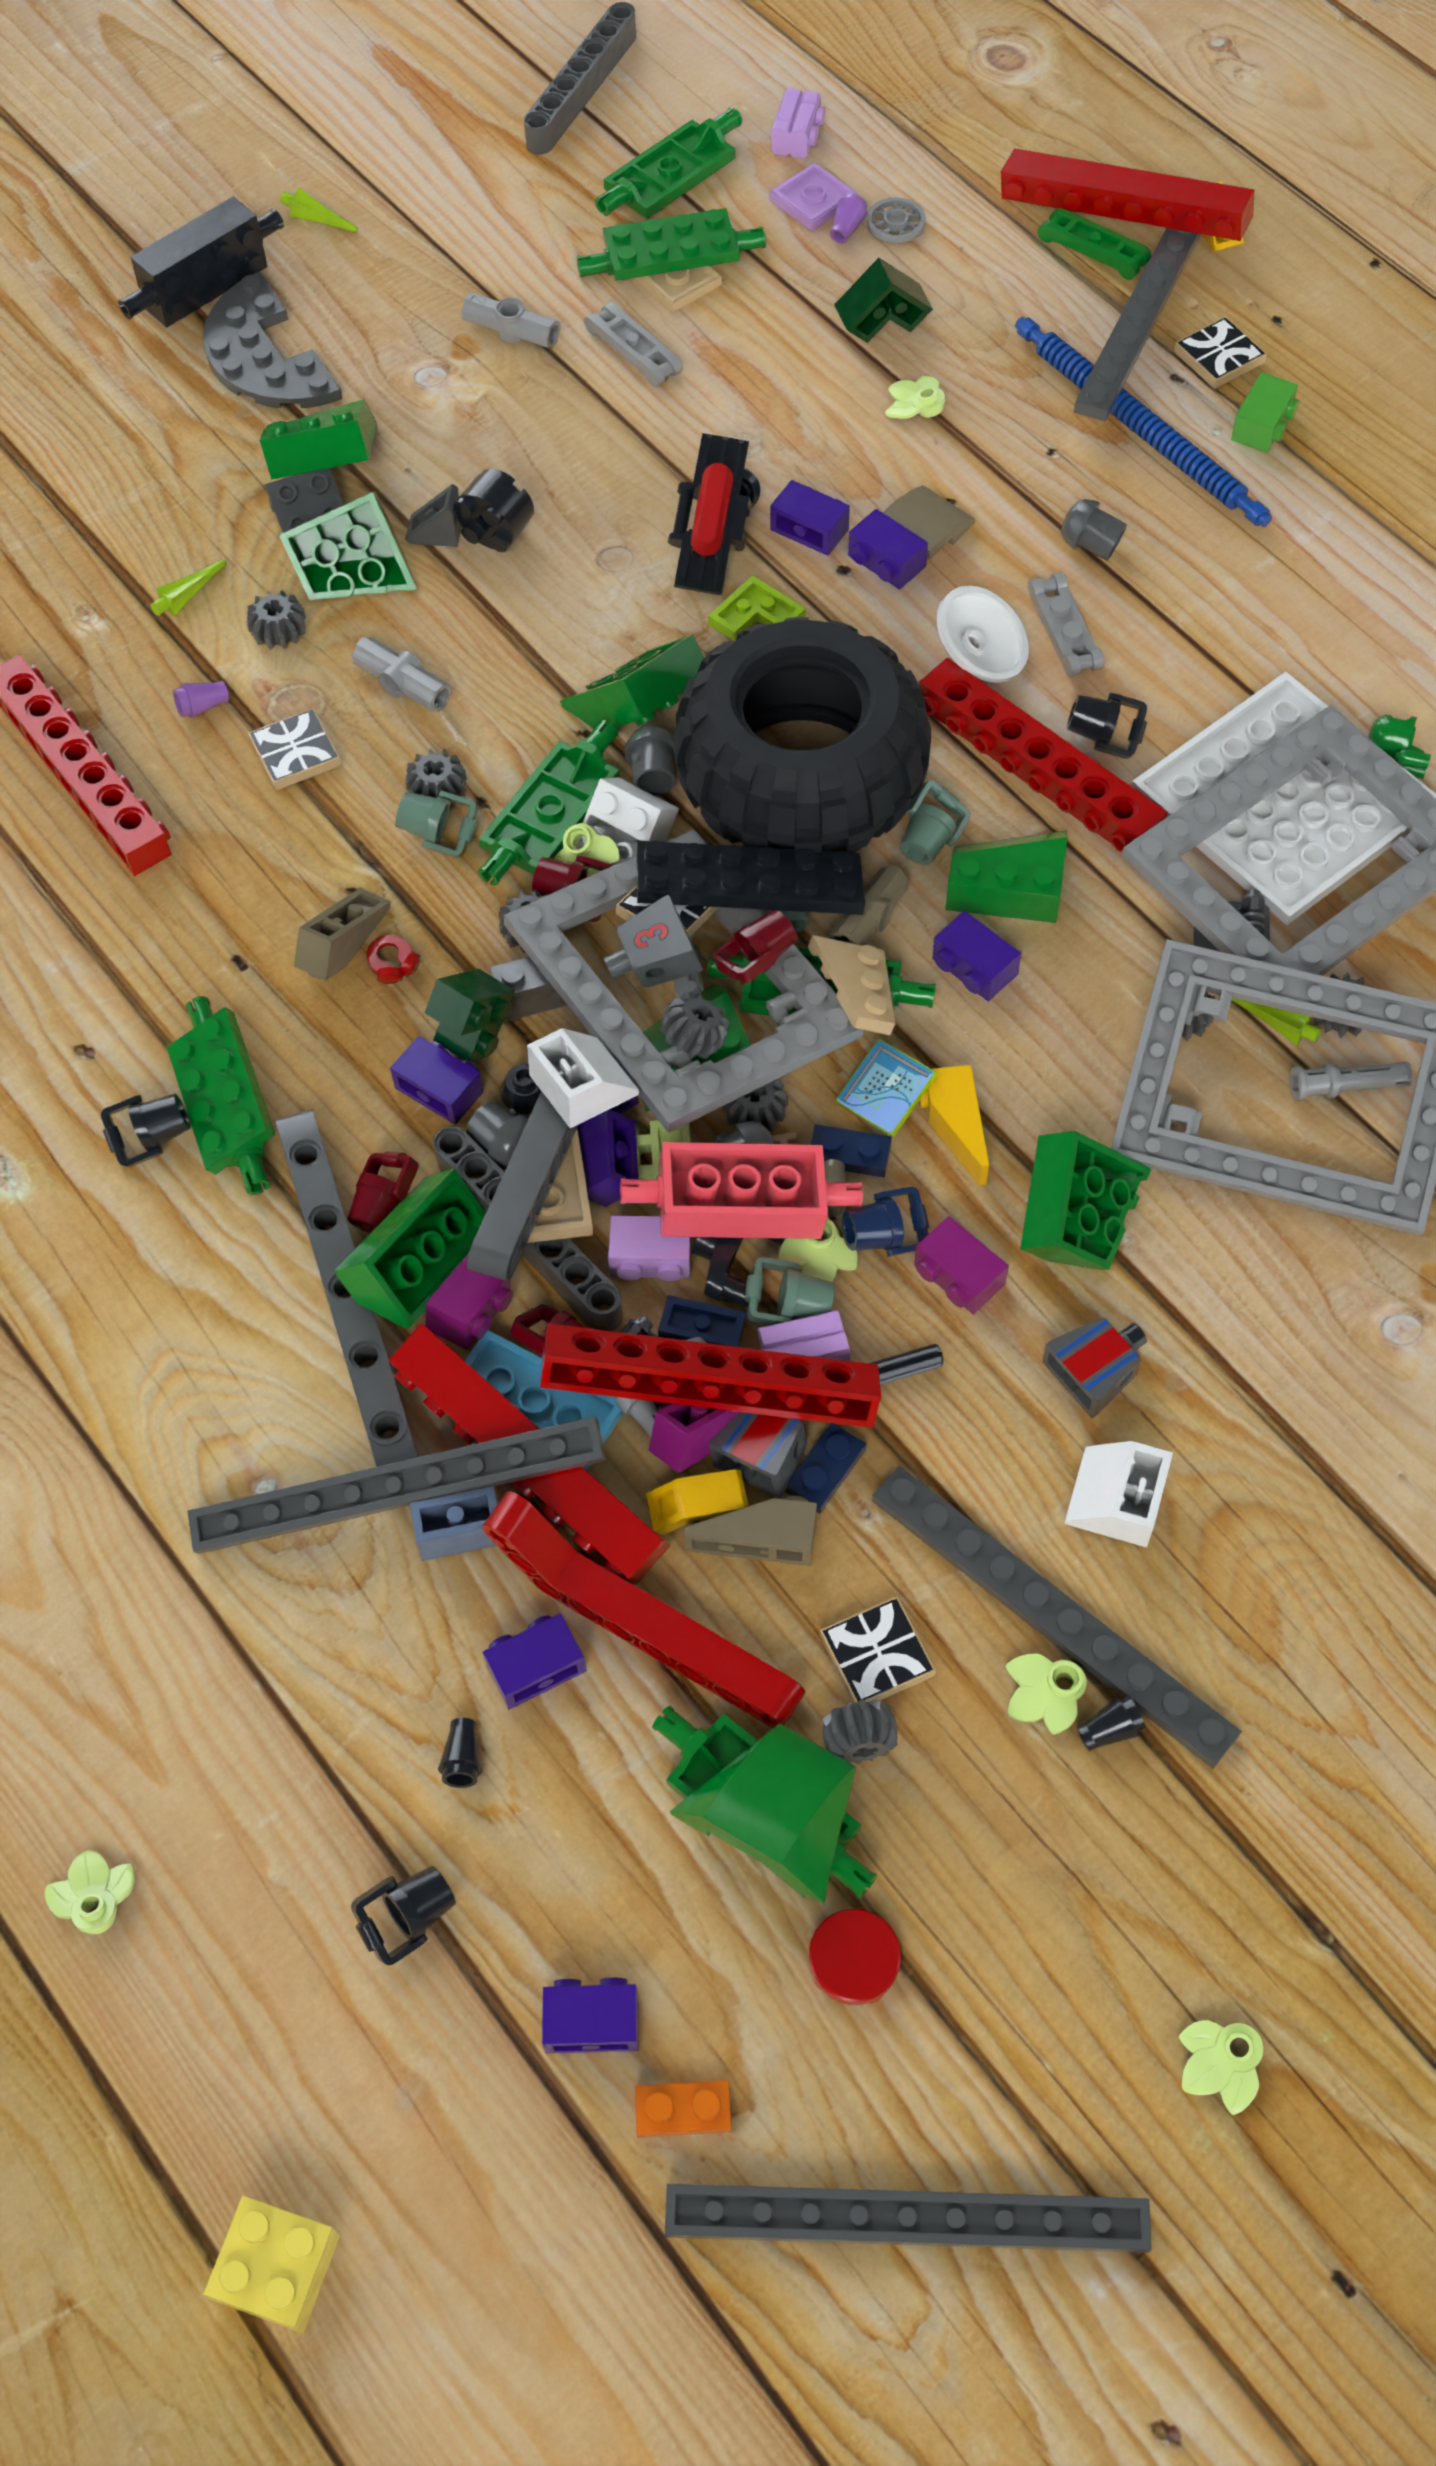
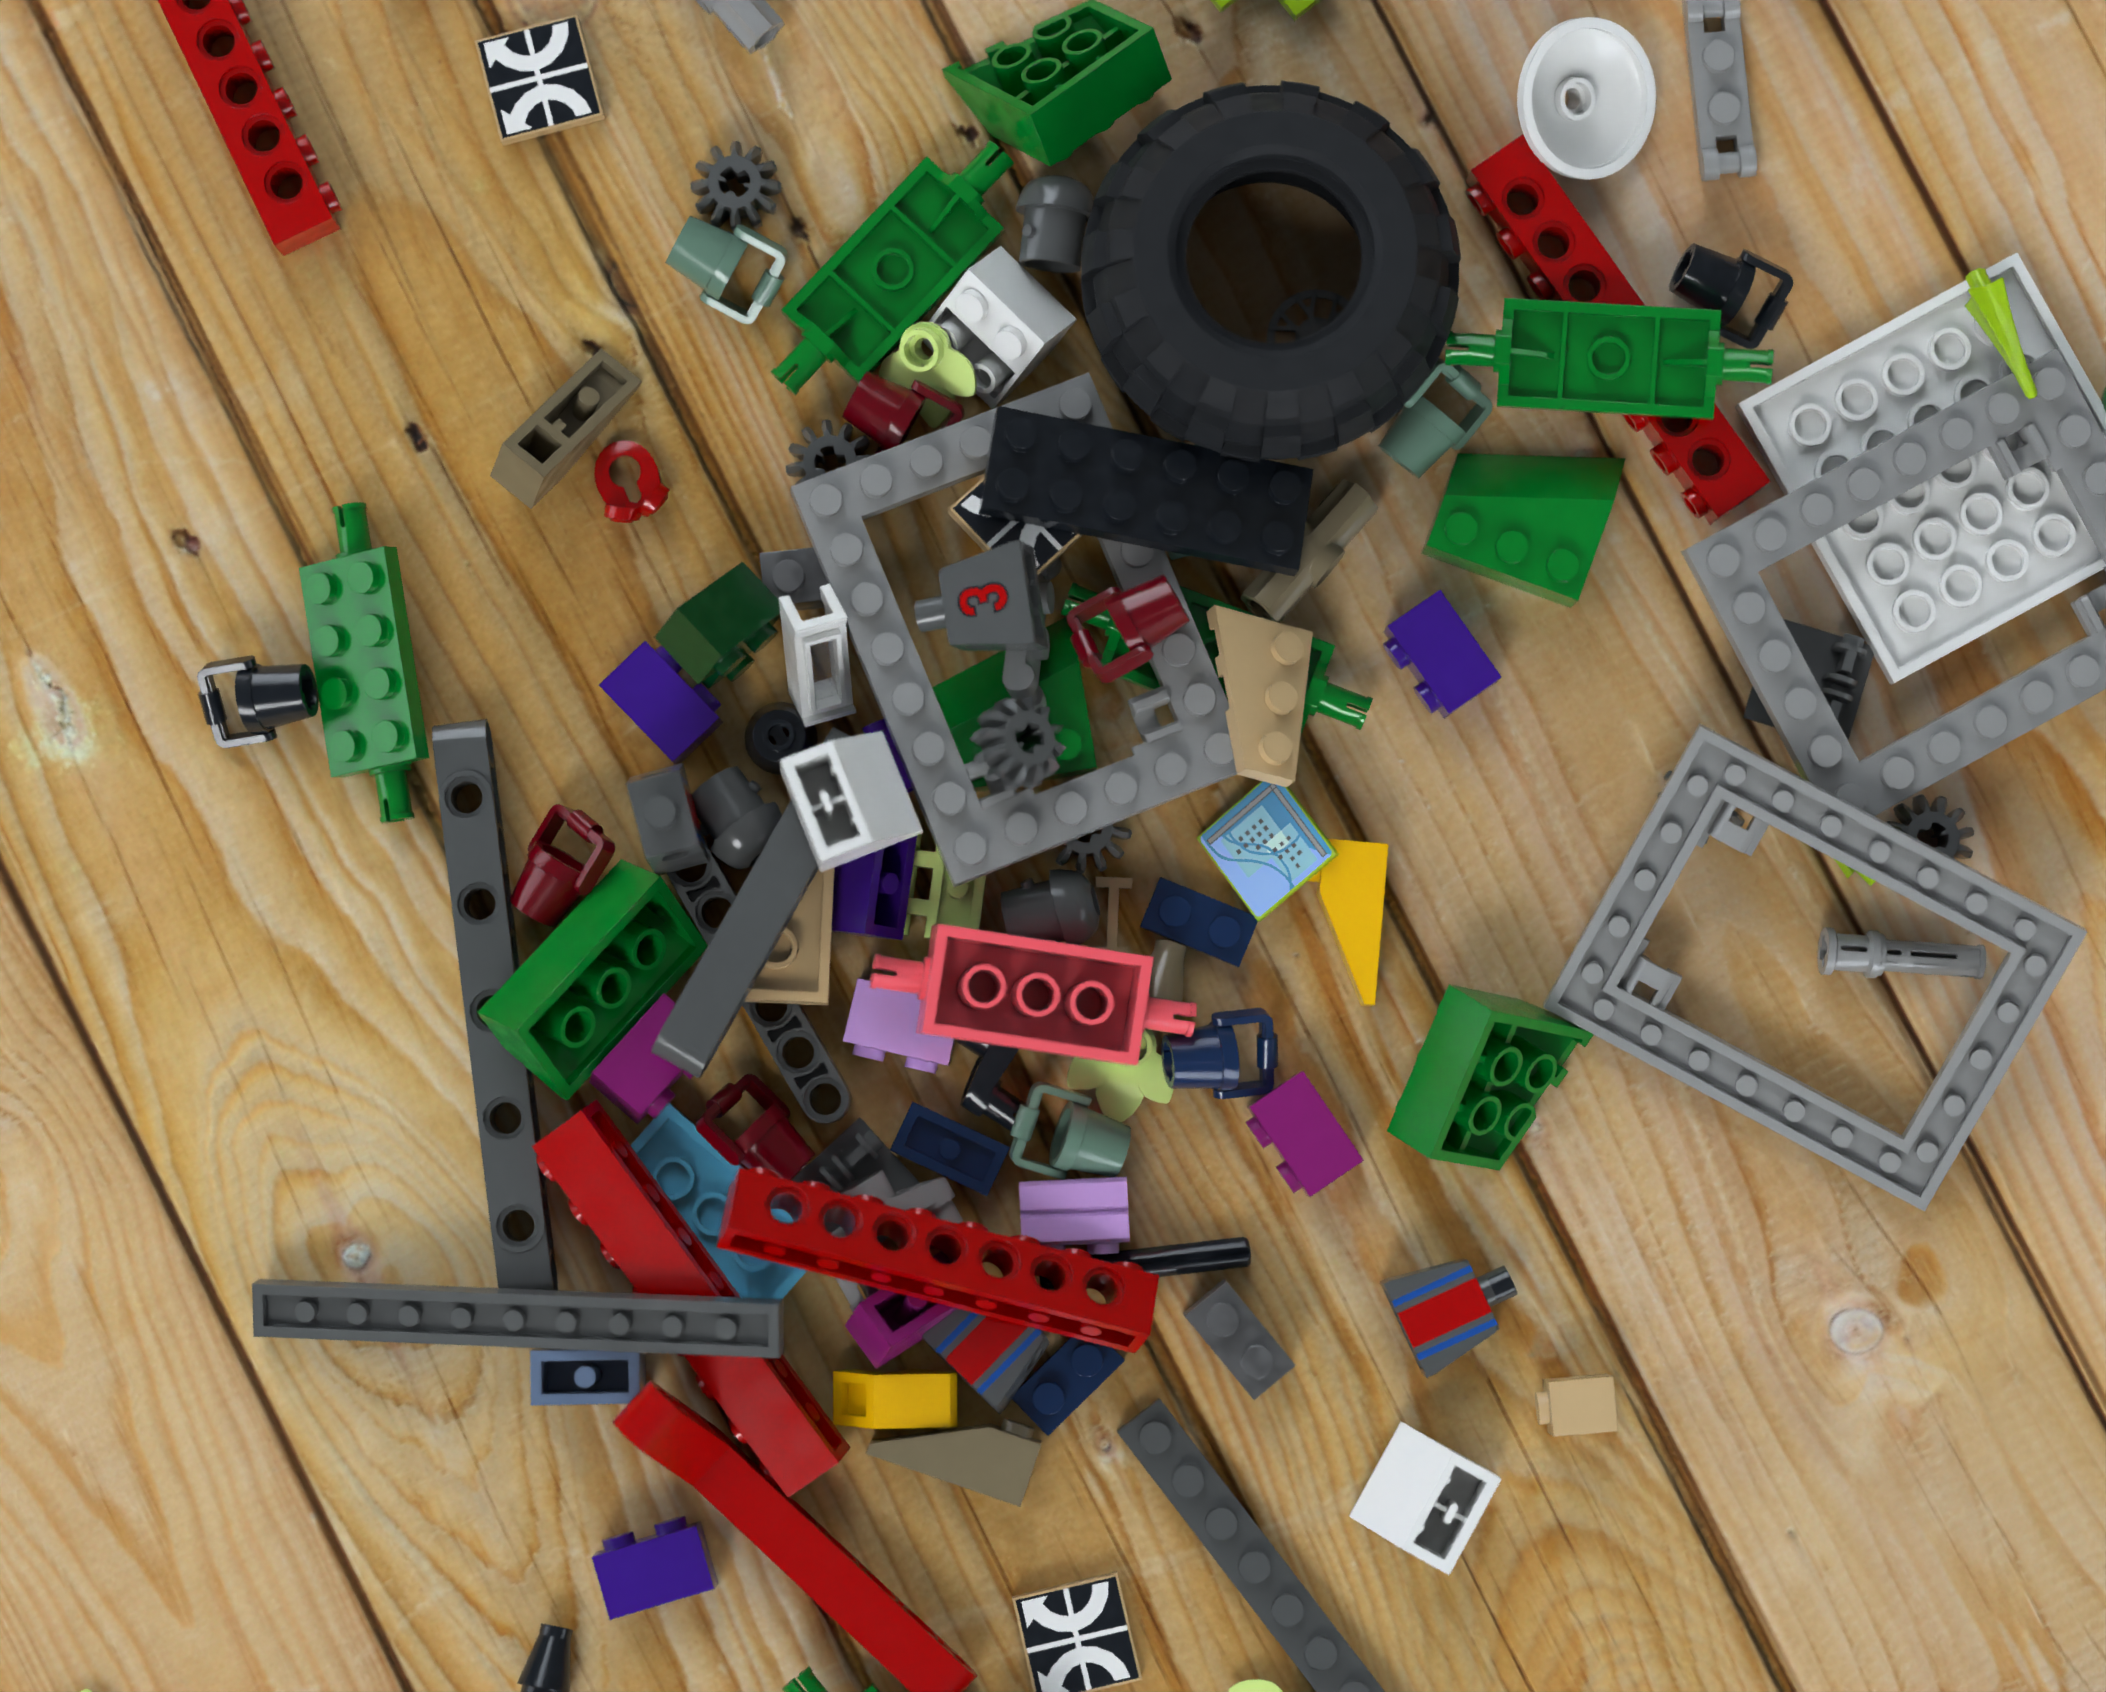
camera: 10 degrees right, 25 degrees up
(449, 1116) = (667, 819): none -> dark grey torso
(537, 1005) = (817, 660): none -> white window
(948, 1408) = (1239, 1339): none -> flat silver brick
(1040, 756) = (1609, 358): none -> green plate
(1214, 1407) = (1577, 1405): none -> tan brick
(1283, 697) = (1993, 313): none -> lime piece

